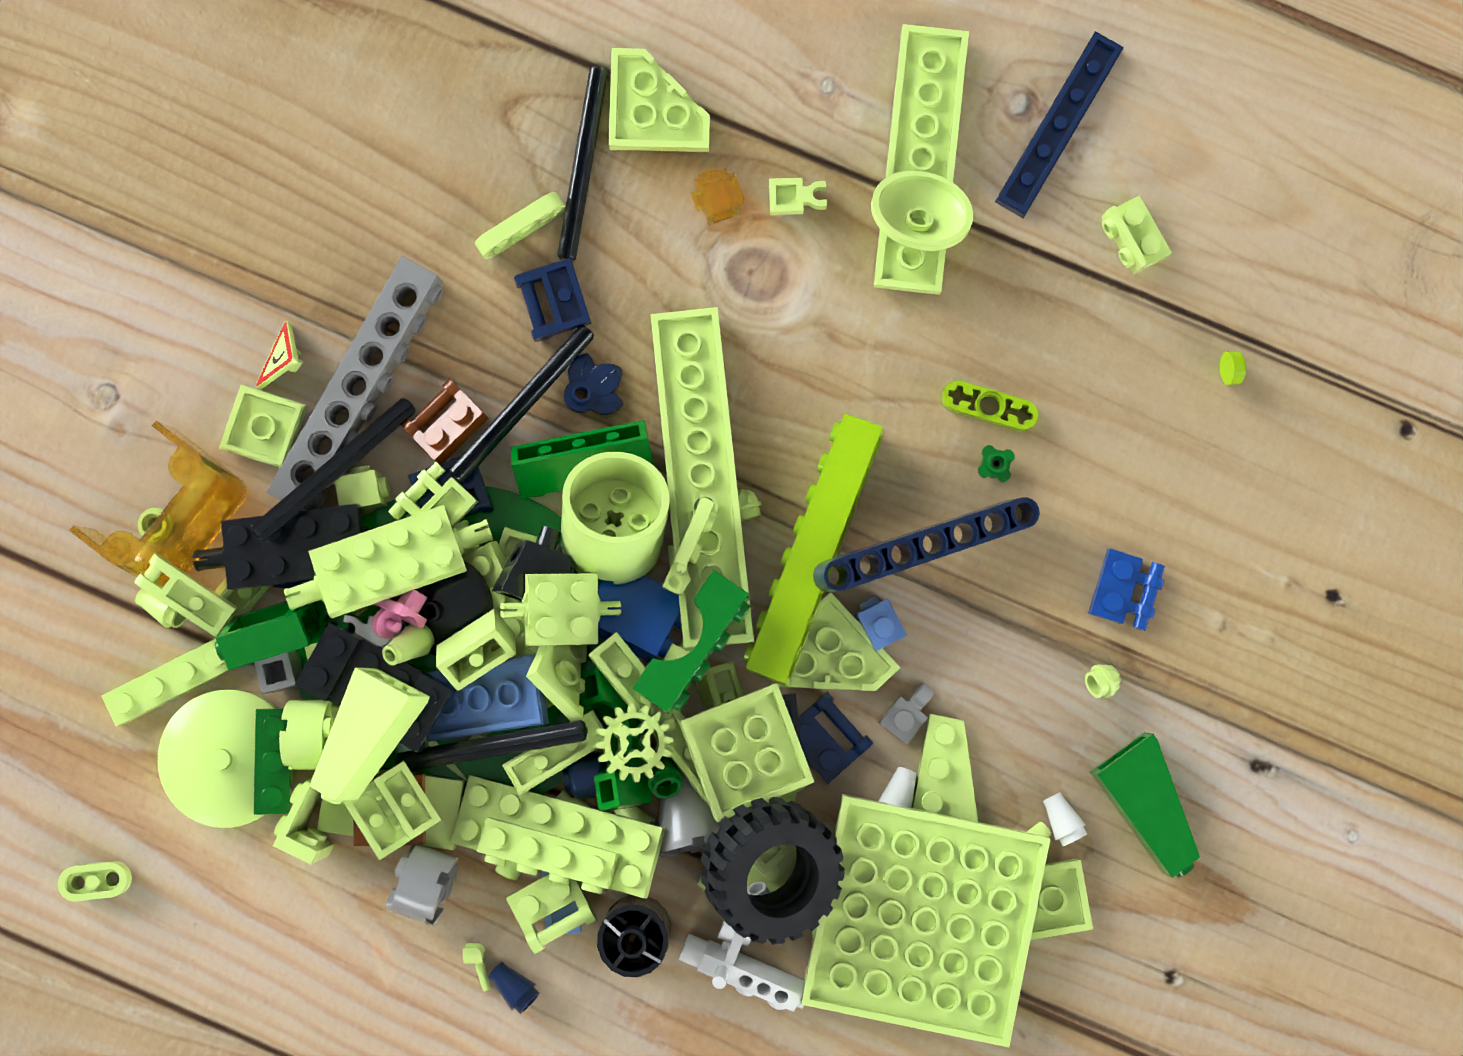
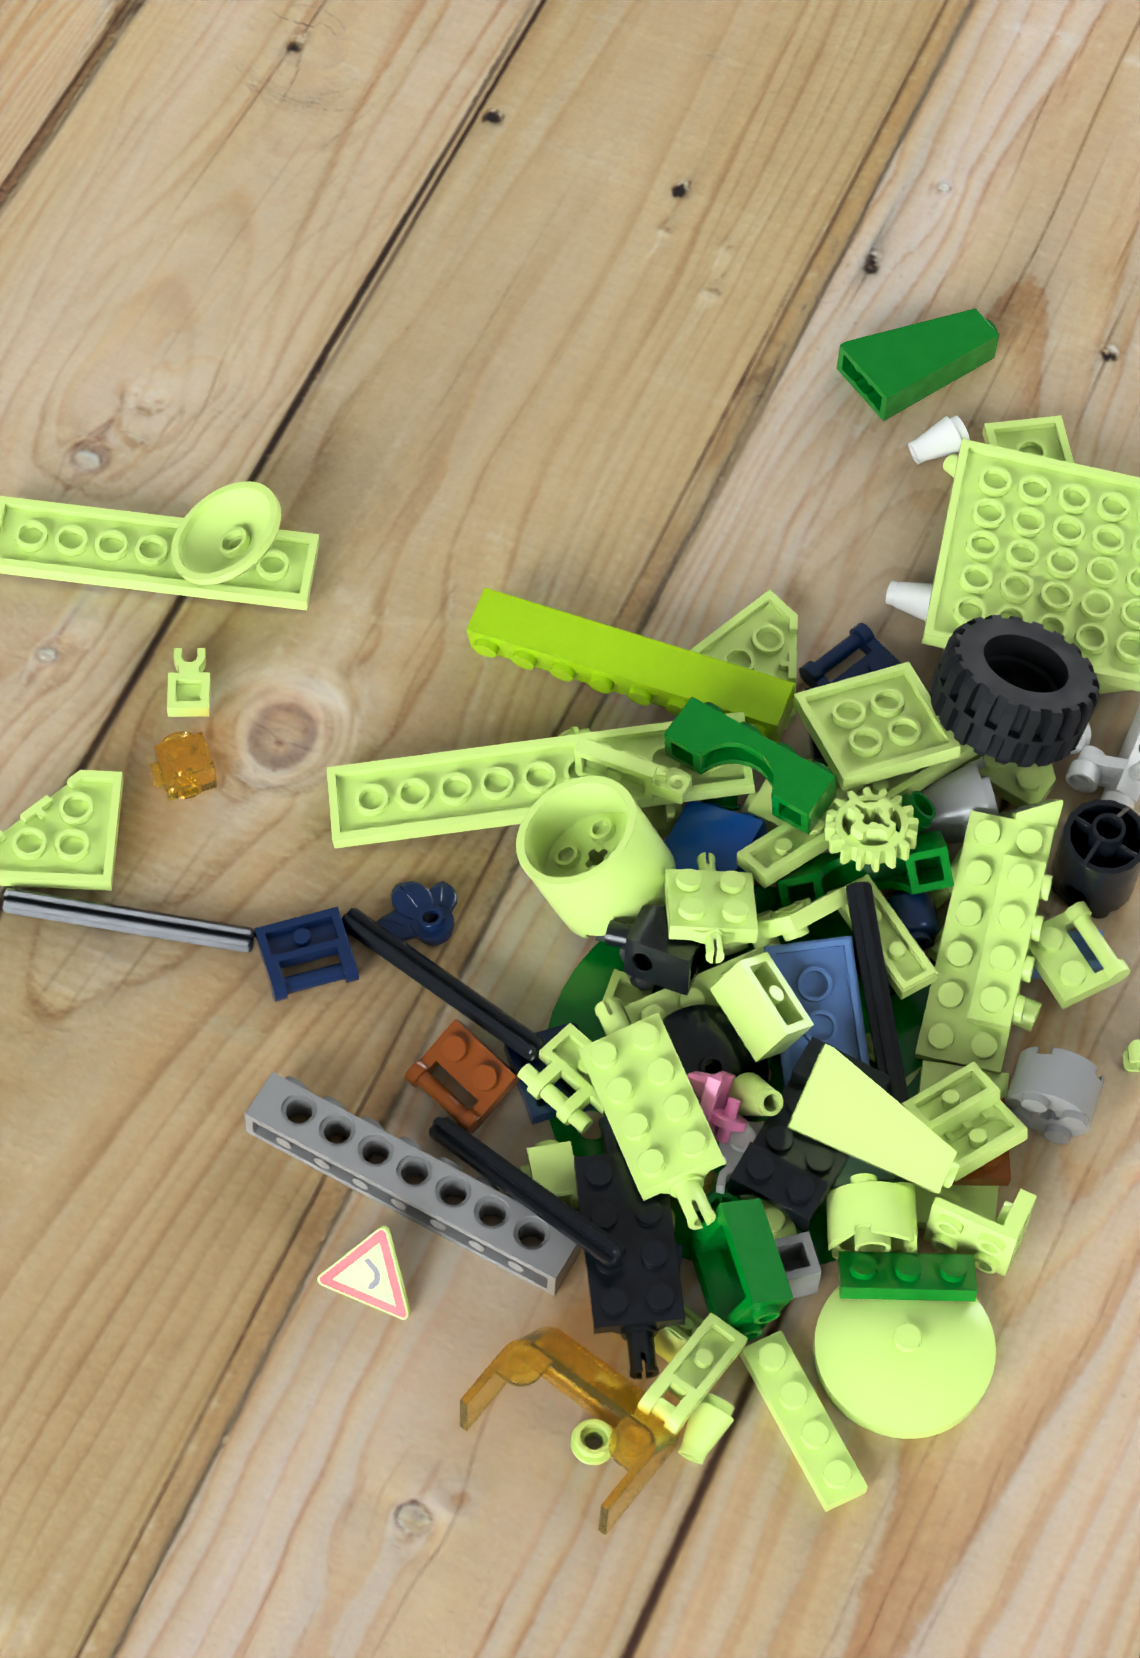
camera: 95 degrees left, 25 degrees down
(97, 881) = (1074, 1513): yellowish green plate -> none
(262, 426) = (463, 1301): yellowish green plate -> none
(520, 225) = (207, 988): yellowish green beam -> none
(545, 464) = (515, 919): green brick -> none
(673, 881) = (1042, 812): none -> yellowish green slope
(880, 622) = (716, 606): medium blue bracket -> none
(905, 716) = (824, 593): light grey plate -> none
(912, 547) = (627, 547): dark blue beam -> none
(944, 771) = (884, 554): yellowish green wing -> none
(1004, 458) = (524, 501): green plate -> none
(1010, 421) = (459, 513): lime beam -> none
(1059, 124) = (119, 418): dark blue tile -> none
(1102, 681) = (780, 398): yellowish green plate -> none
(1116, 587) = (671, 384): blue plate -> none
(1135, 235) = (258, 348): yellowish green bracket -> none
(1232, 367) = (420, 262): lime tile -> none

